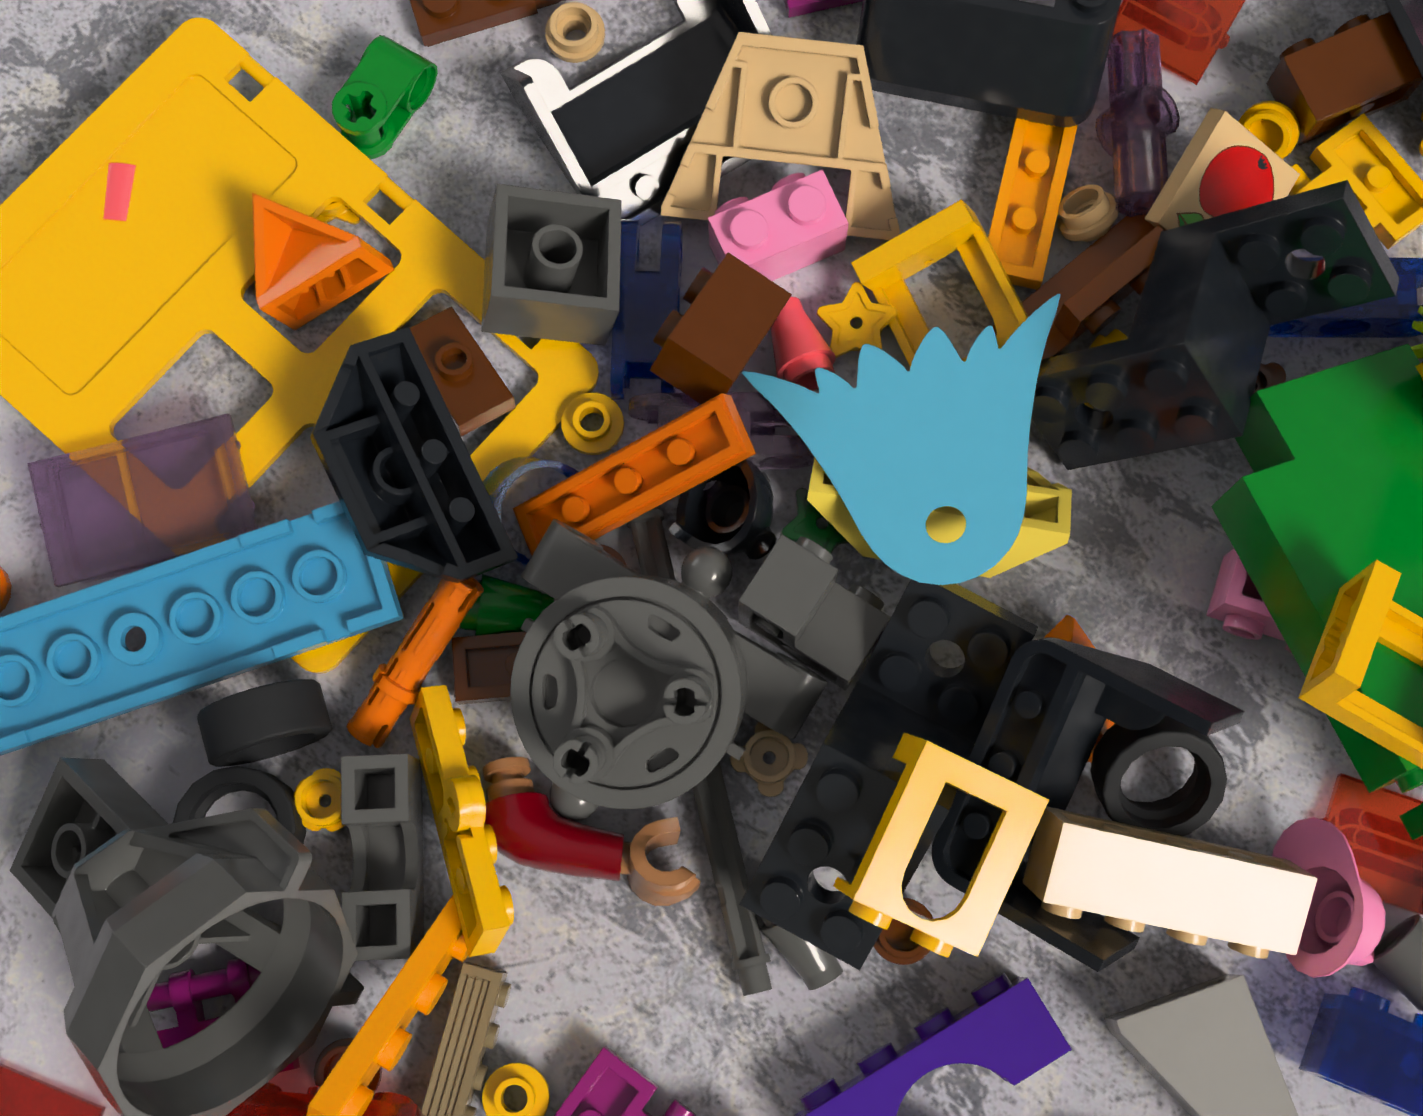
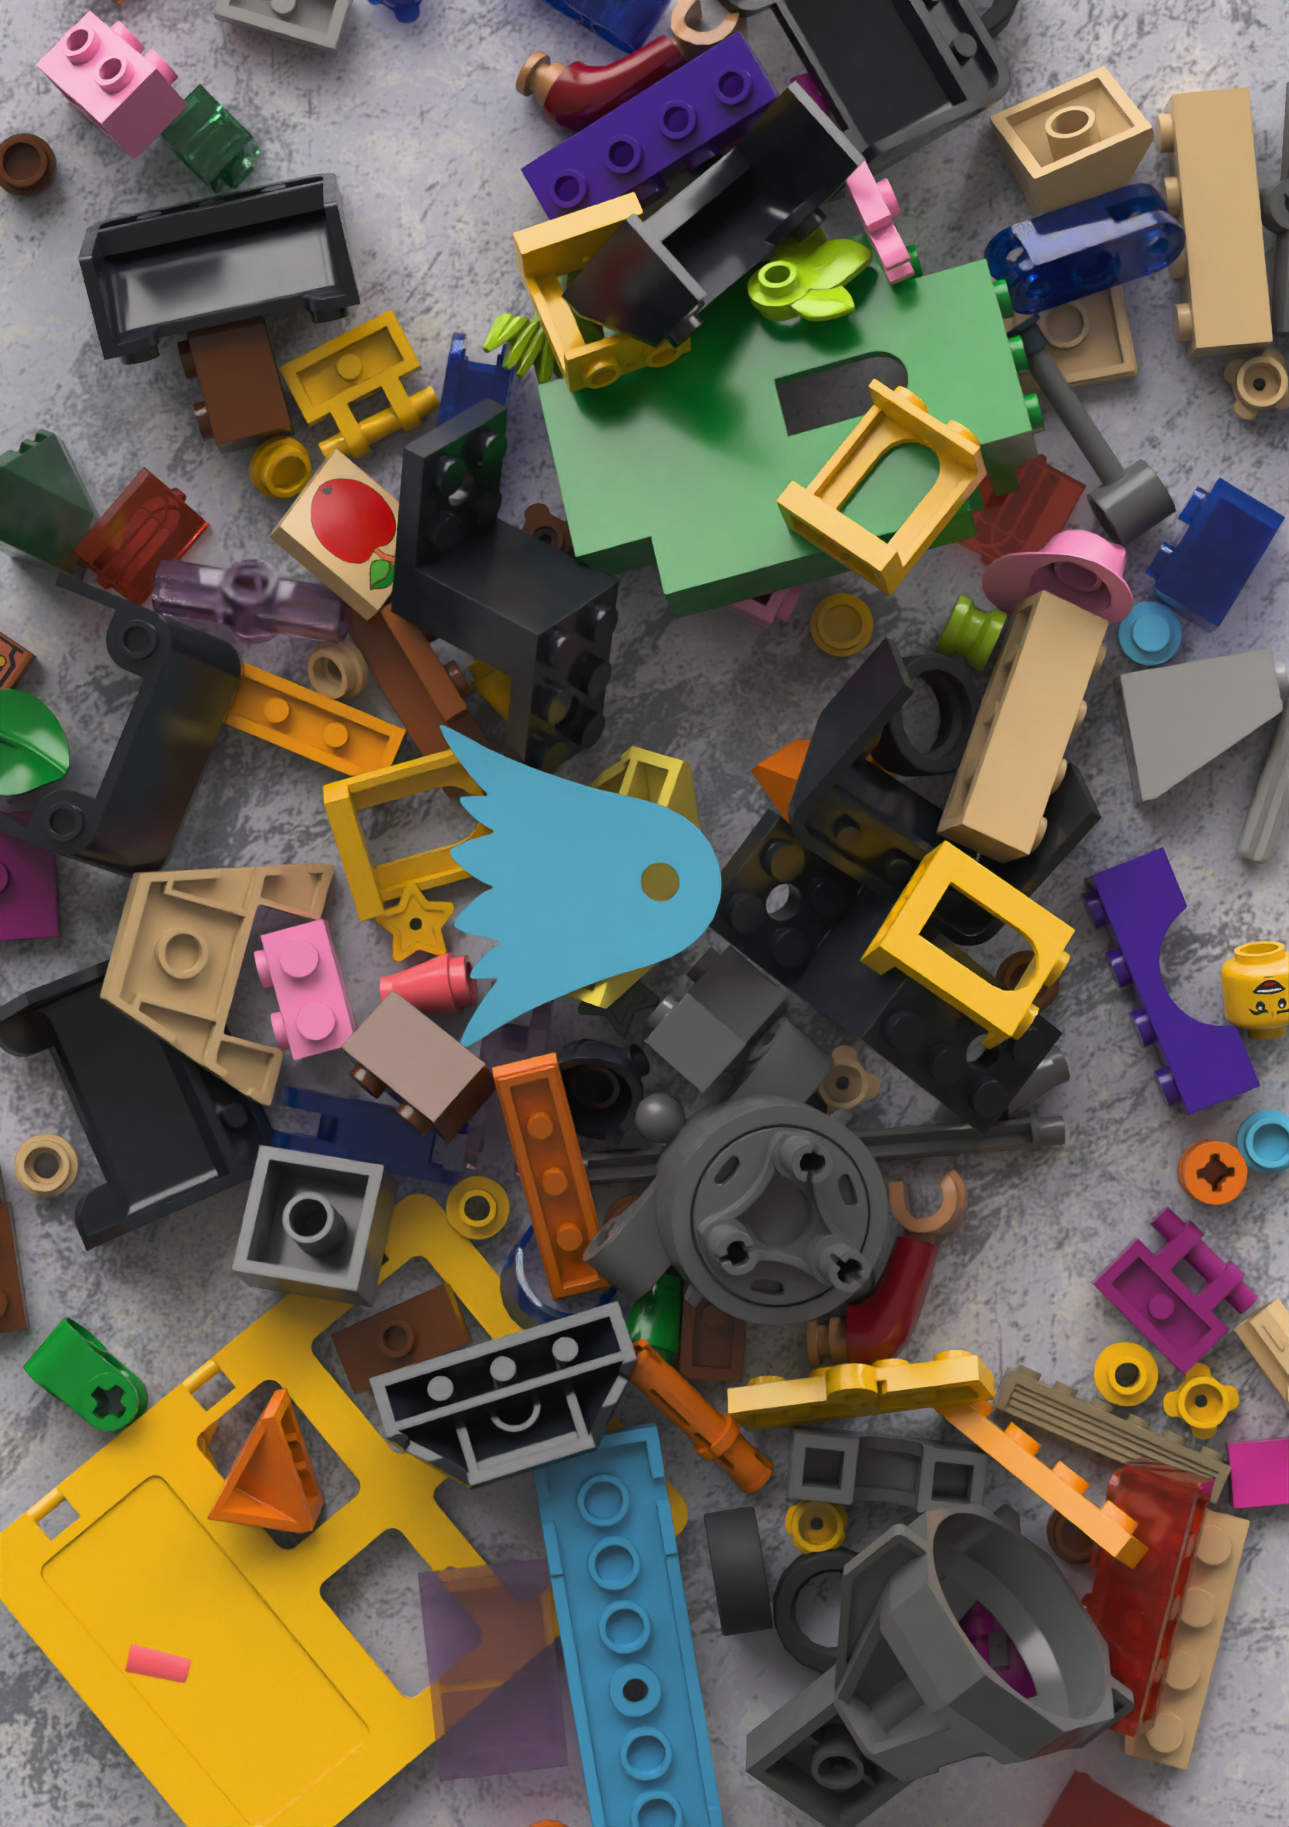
camera: 85 degrees left, 10 degrees up
(1230, 680) = (841, 625): none -> yellow plate
(1250, 816) = (971, 632): none -> lime wheel
(1286, 1003) = (1149, 634): none -> medium azure plate

